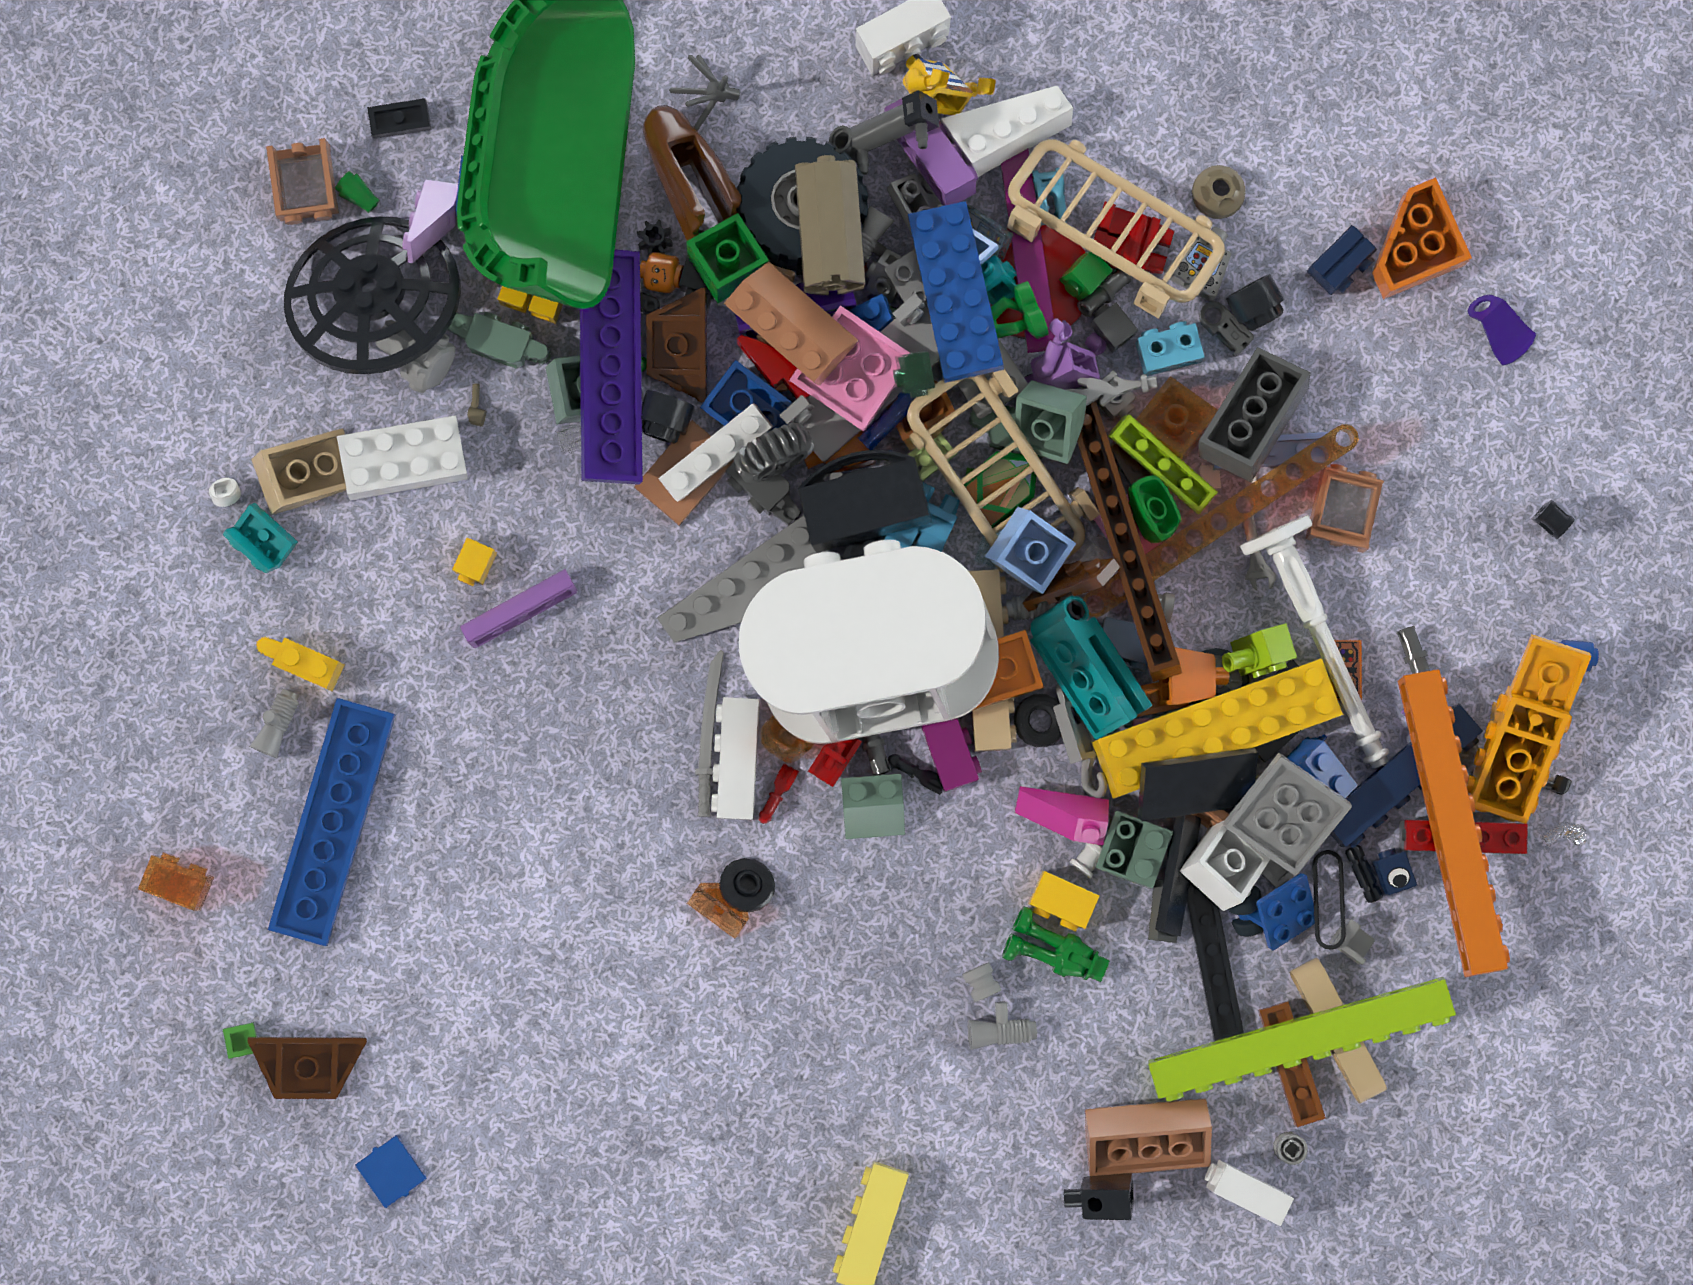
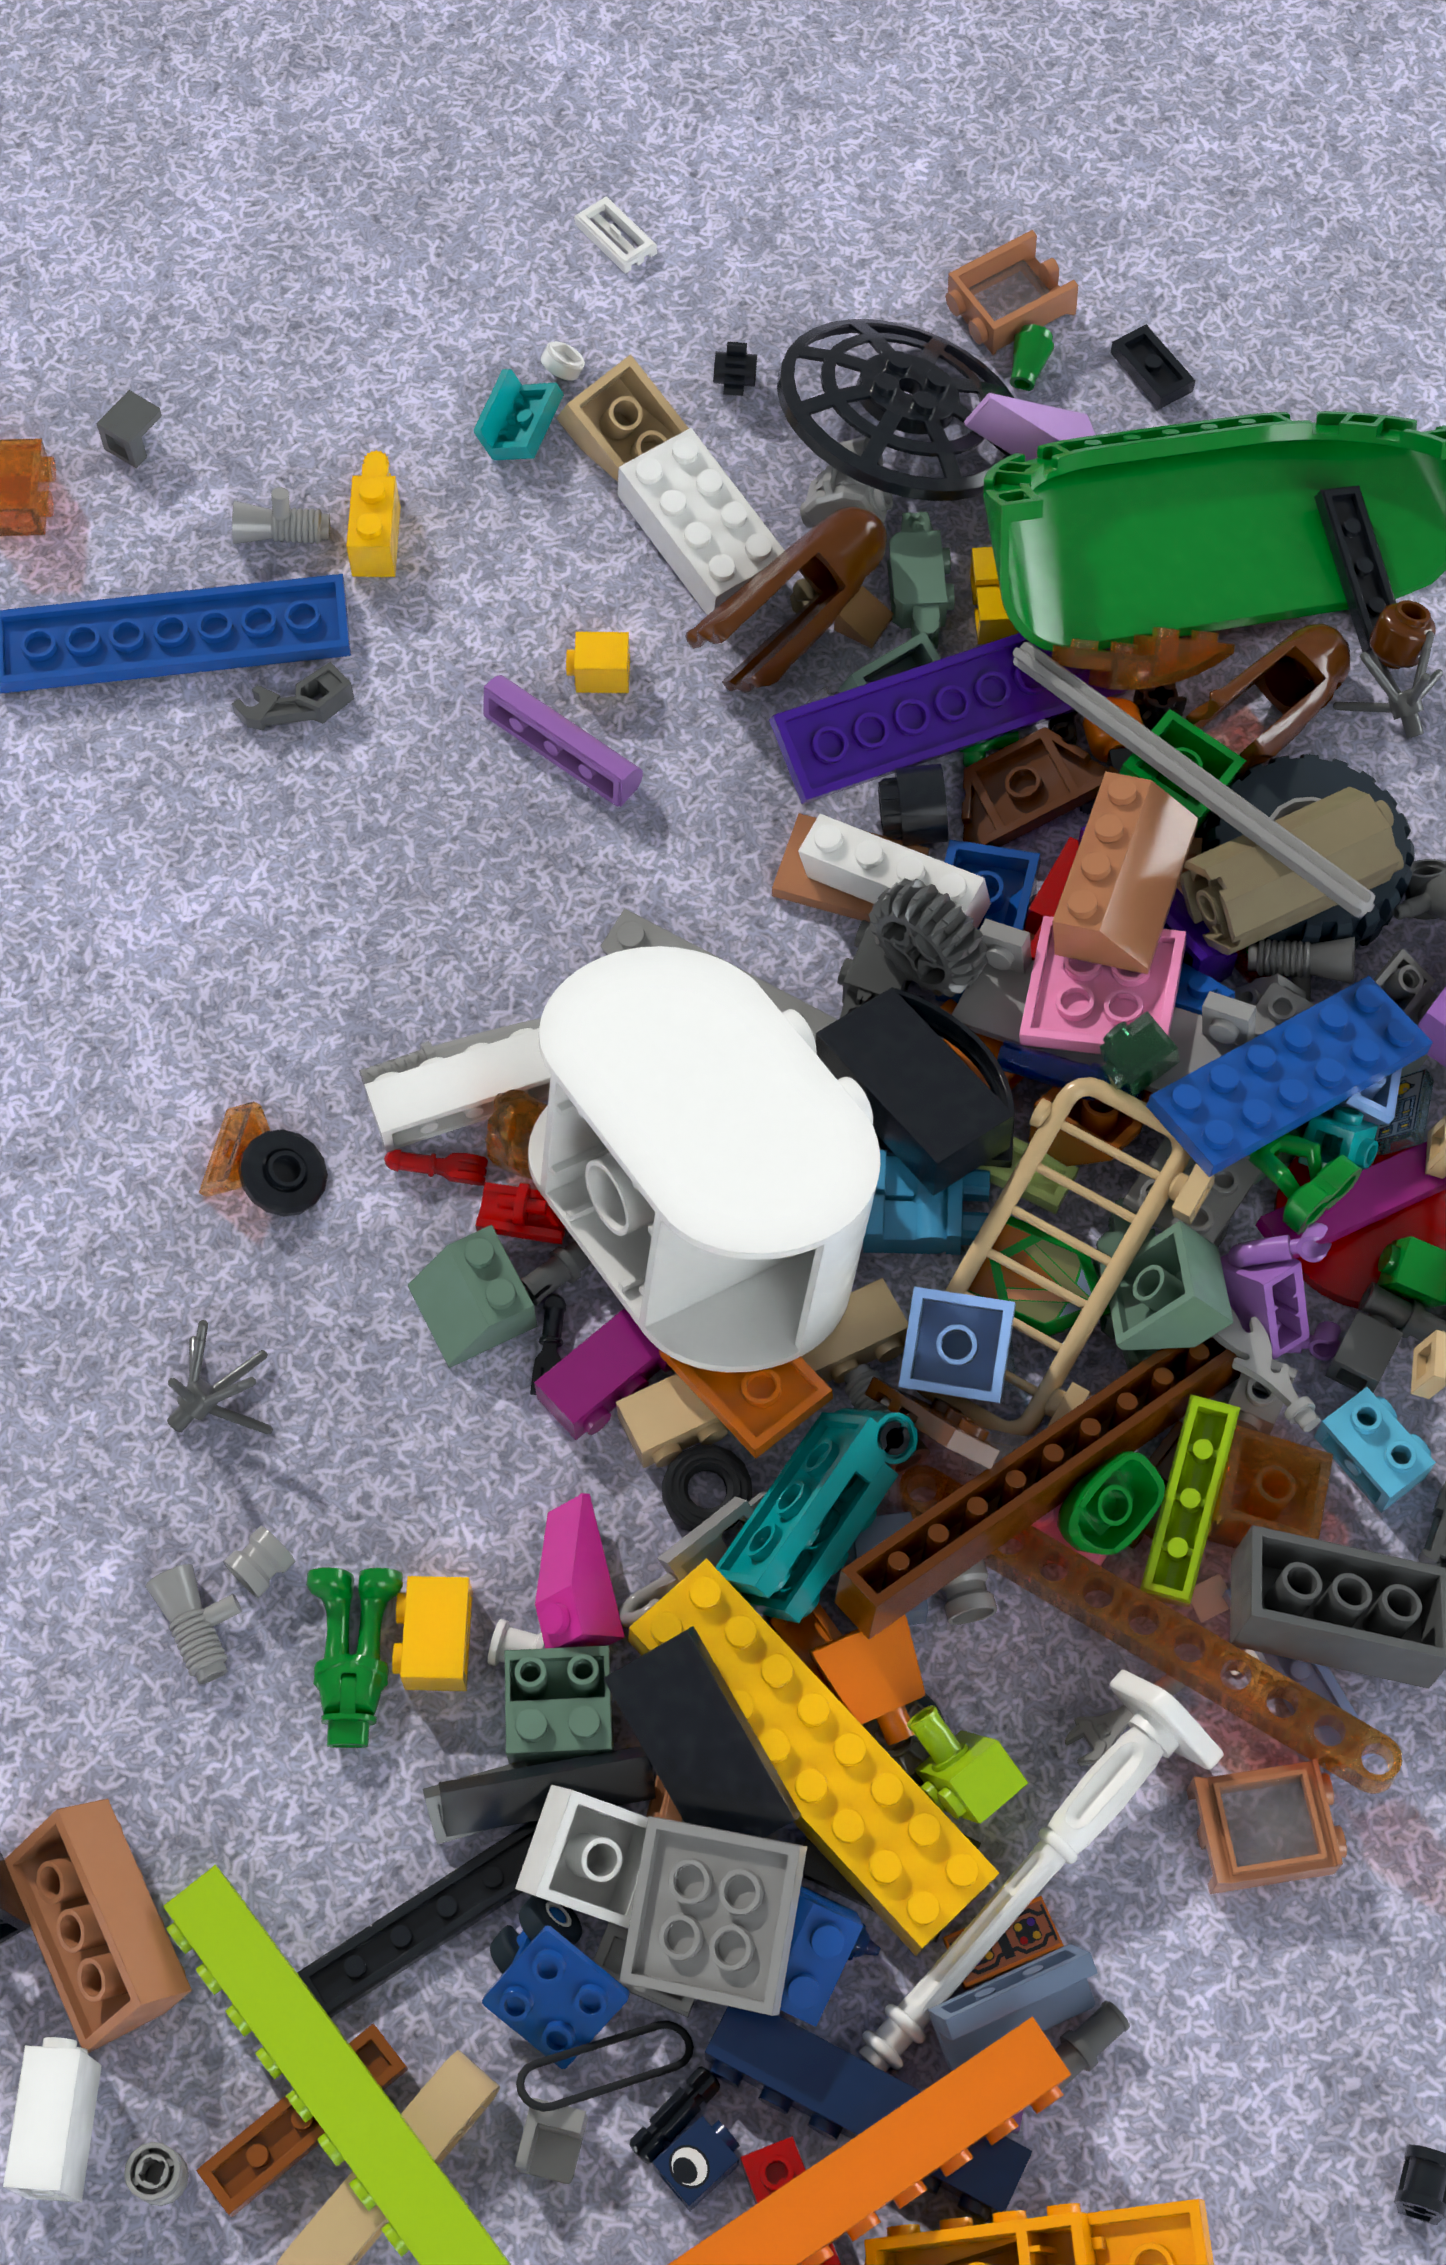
camera: 70 degrees right, 20 degrees down
(155, 408) = (616, 254): none -> white tile
(157, 793) = (125, 425): none -> dark grey panel
(284, 384) = (735, 368): none -> black gear
(419, 776) = (276, 710): none -> dark grey piece
(492, 428) = (833, 561): none -> reddish brown piece
(509, 385) = (863, 618): none -> medium nougat slope
(612, 68) = (1355, 557): none -> black tile
(636, 229) = (1147, 661): none -> clear orange slope
(676, 70) = (1401, 634): none -> reddish brown head
(751, 257) = (1196, 781): none -> light grey axle
(870, 980) = (201, 1398): none -> dark grey plant
(1382, 679) = (1046, 1988): none -> sand blue panel

